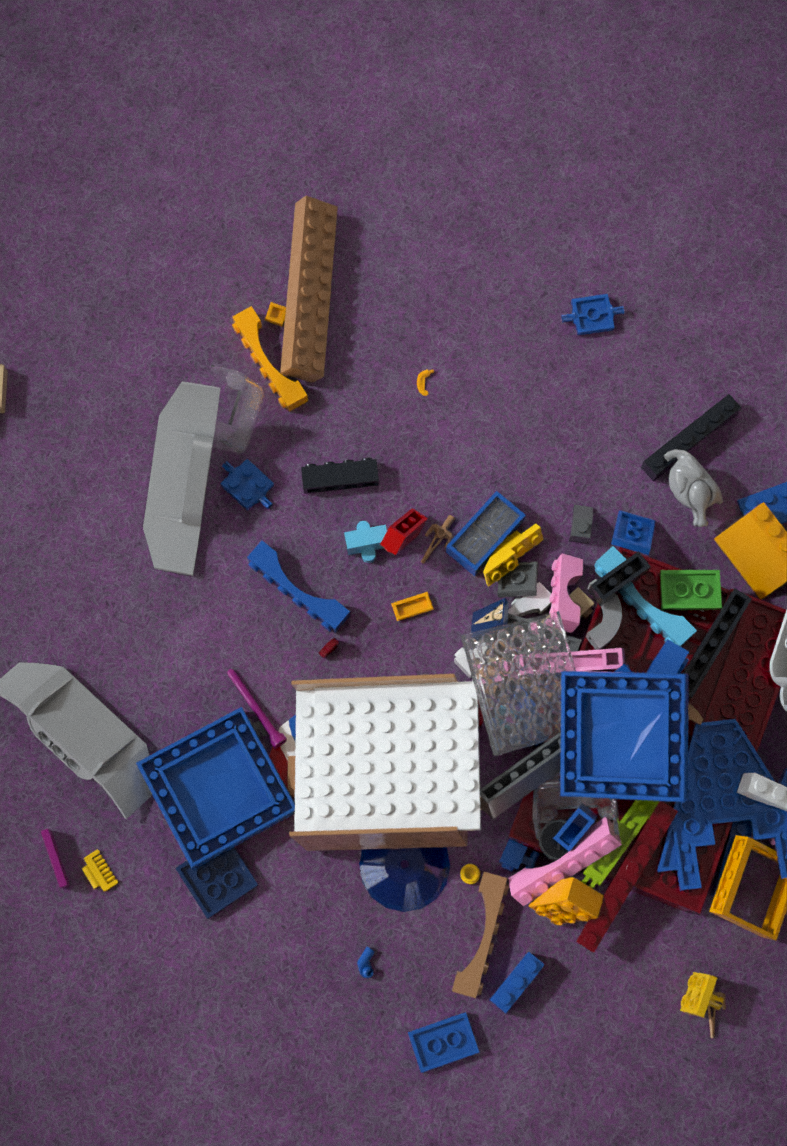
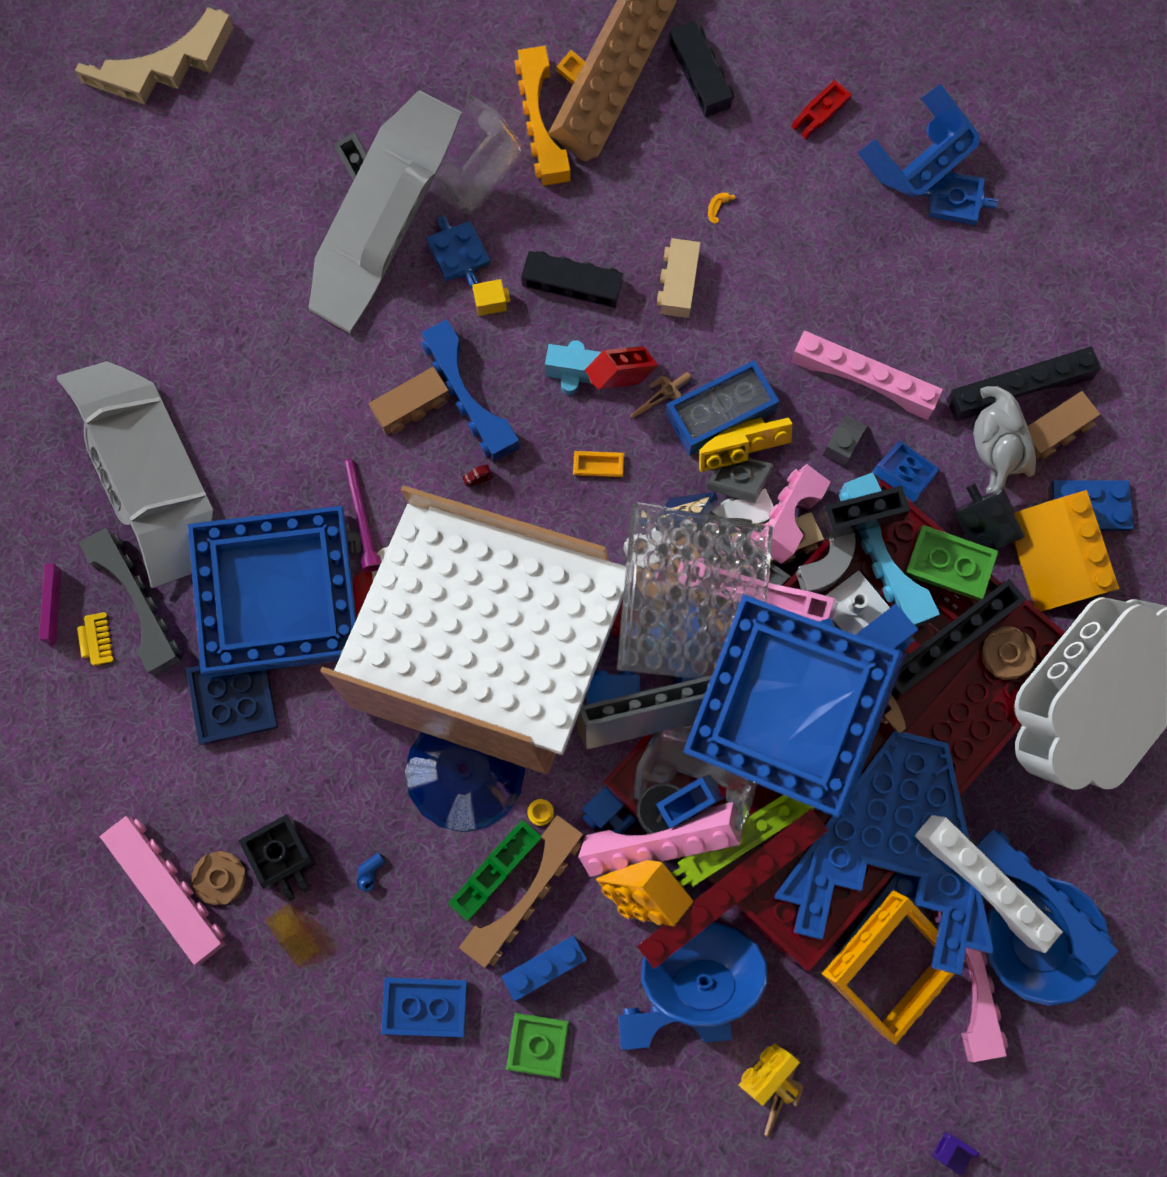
camera: 20 degrees right, 0 degrees up
(80, 806) = (156, 649): none -> dark grey arch
(143, 441) = (352, 153): none -> dark grey brick
(224, 1032) = (163, 890): none -> bright pink brick
(258, 611) = (410, 401): none -> medium nougat brick
(266, 1007) = (218, 878): none -> medium nougat tile
(285, 511) = (490, 297): none -> yellow brick
(298, 988) = (294, 859): none -> black hinge
(331, 1028) = (292, 934): none -> clear yellow slope
(371, 281) = (700, 68): none -> black brick
(417, 447) = (678, 277): none -> tan brick
(454, 927) = (494, 870): none -> green slope
(471, 280) = (822, 108): none -> red hinge
(492, 767) = (612, 686): none -> blue brick
(532, 1037) = (537, 1045): none -> bright green tile
(547, 468) = (907, 391): none -> bright pink arch
(575, 278) = (952, 141): none -> blue windscreen
(598, 998) = (638, 1028): none -> blue arch
(636, 929) = (715, 957): none -> blue dish
(638, 645) = (857, 604): none -> white tile
(703, 546) = (989, 519): none -> black plate
(729, 457) = (1062, 424): none -> medium nougat brick
(752, 639) = (1008, 653): none -> medium nougat tile

